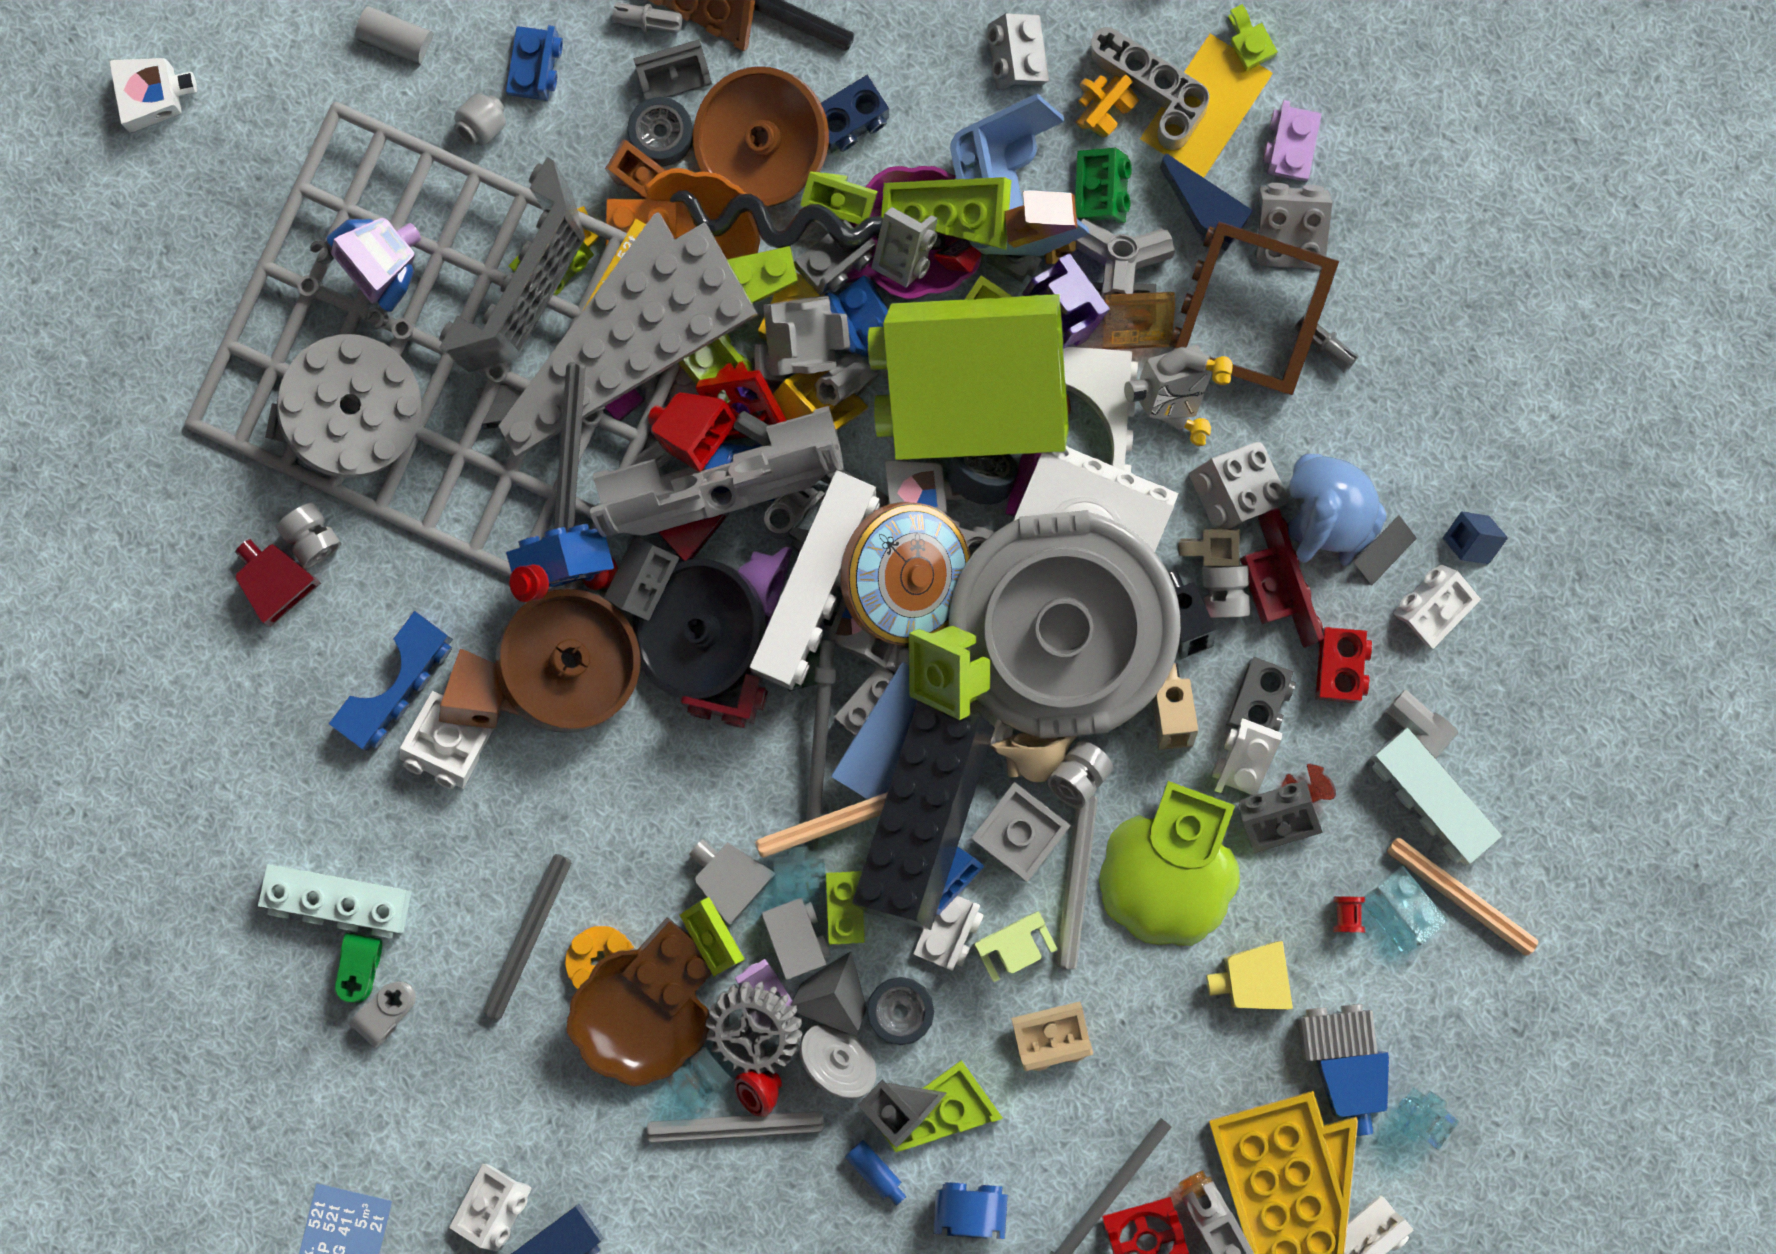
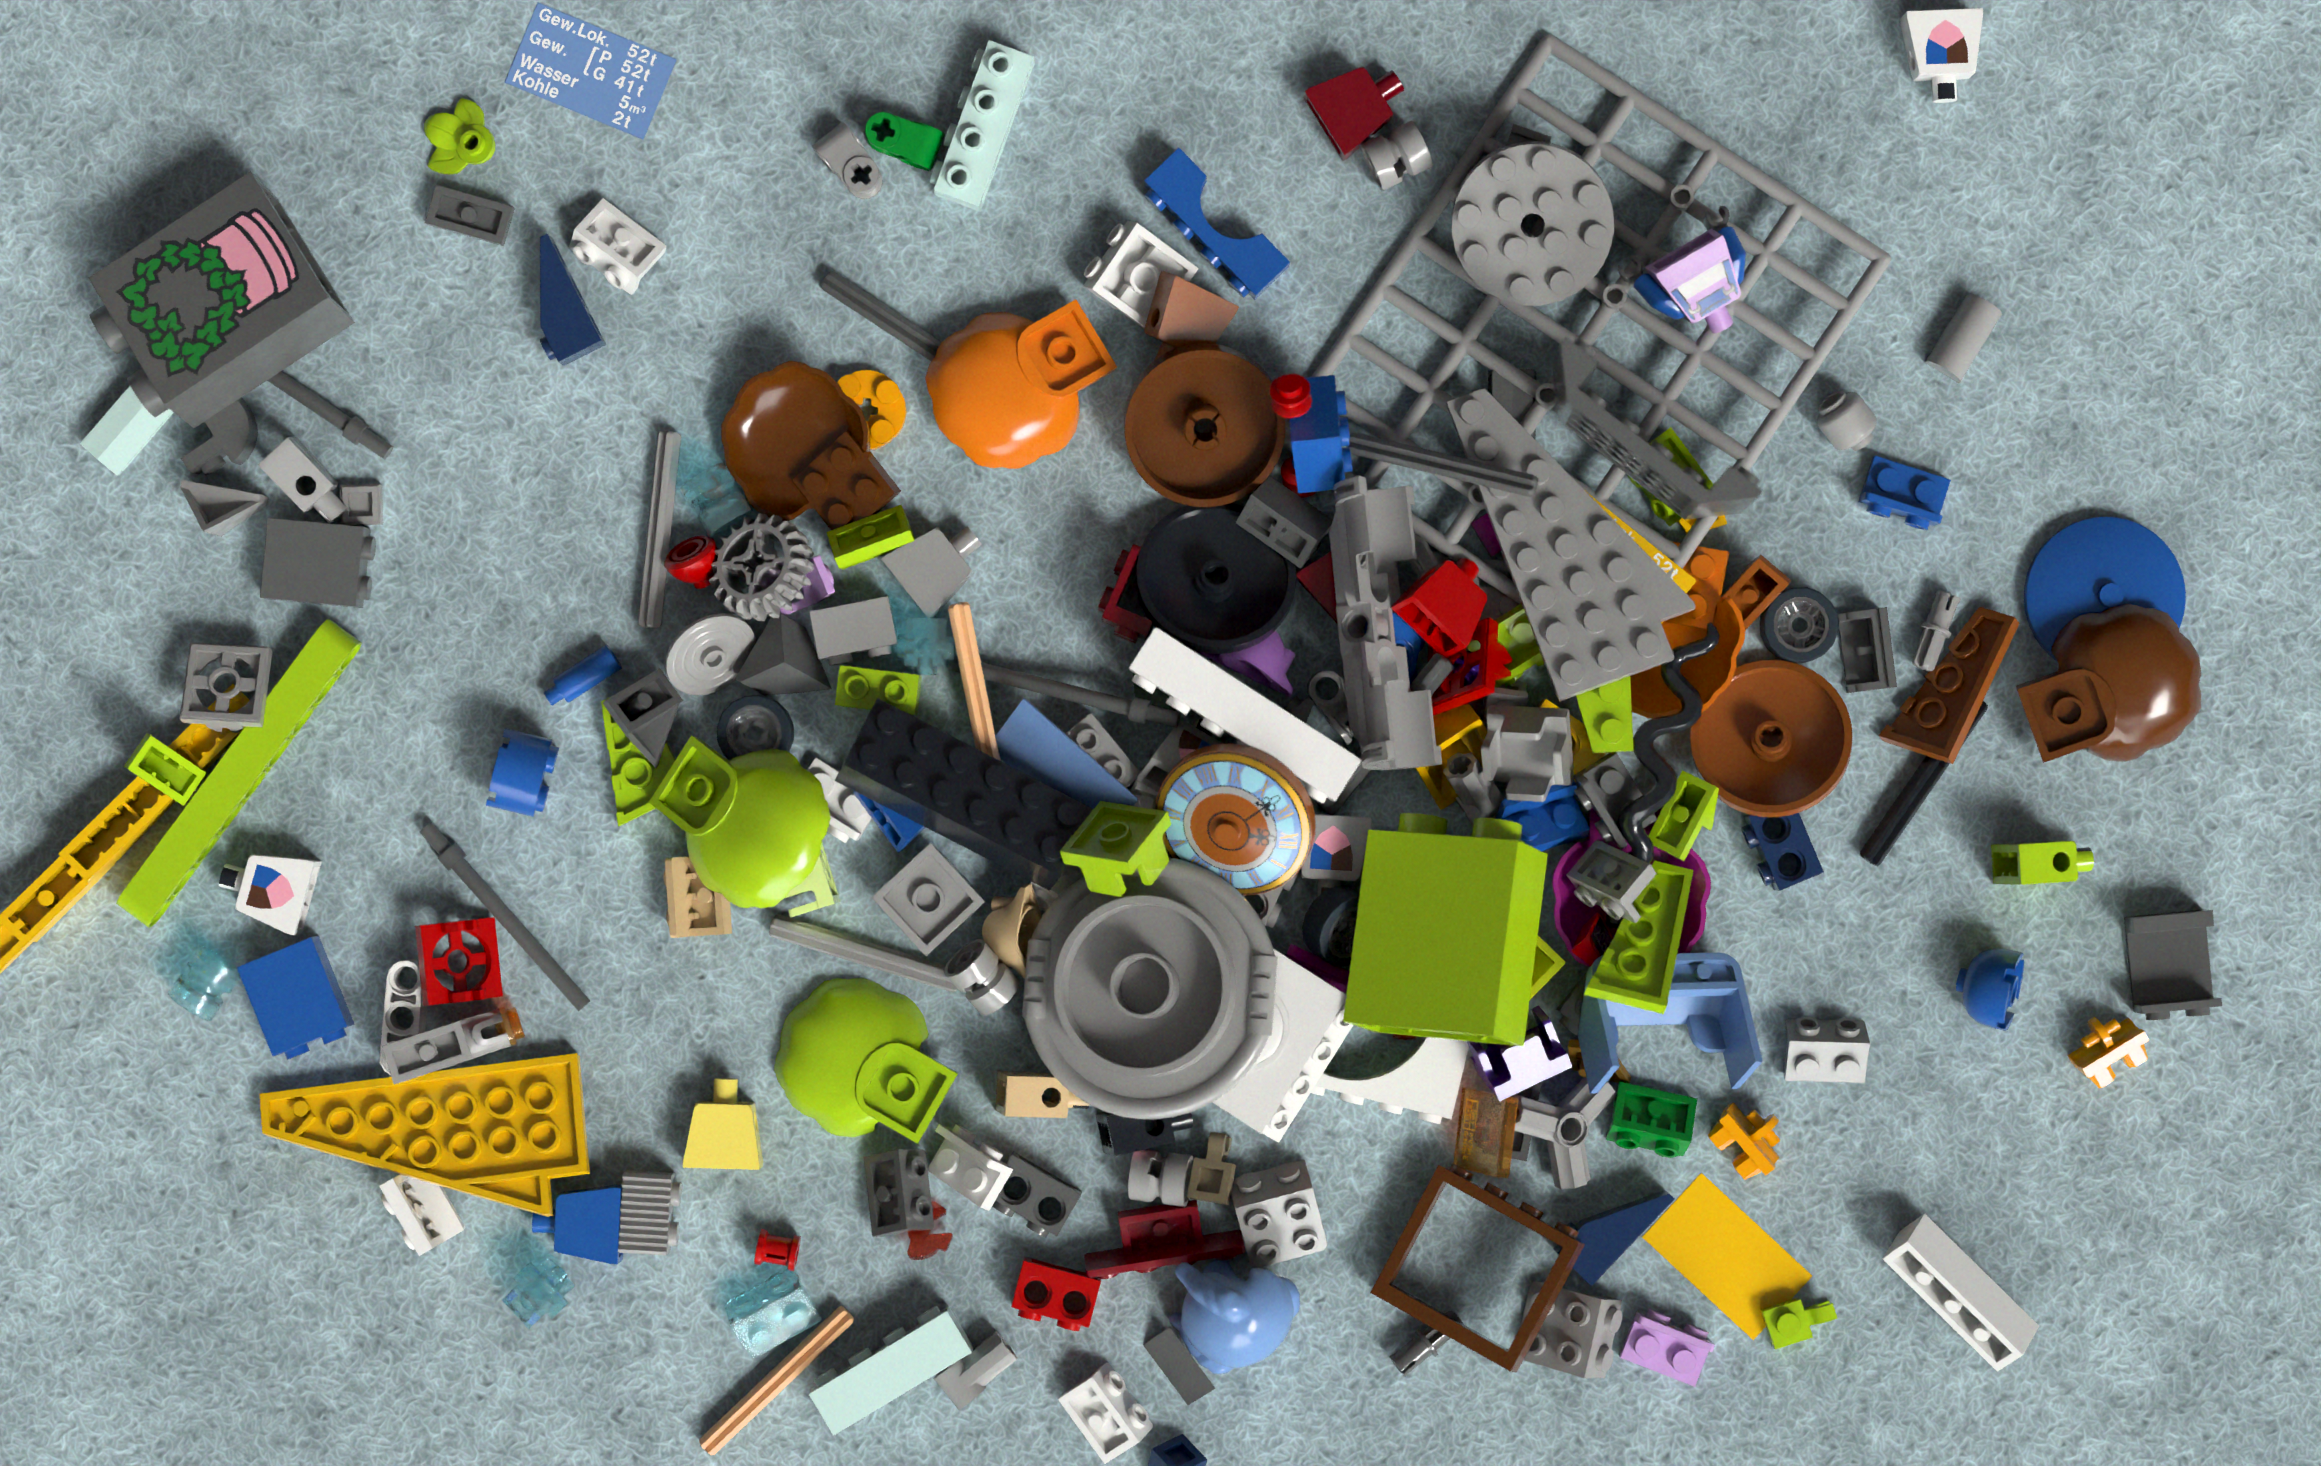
camera: 100 degrees right, 5 degrees up
(557, 835) = (1013, 384): none -> orange animal
(981, 1001) = (746, 820): none -> lime animal
(1040, 217) = (1611, 1039): slope -> none
(1144, 82) = (1766, 1190): light grey beam -> none
(1175, 385) = (1400, 1160): light grey torso -> none

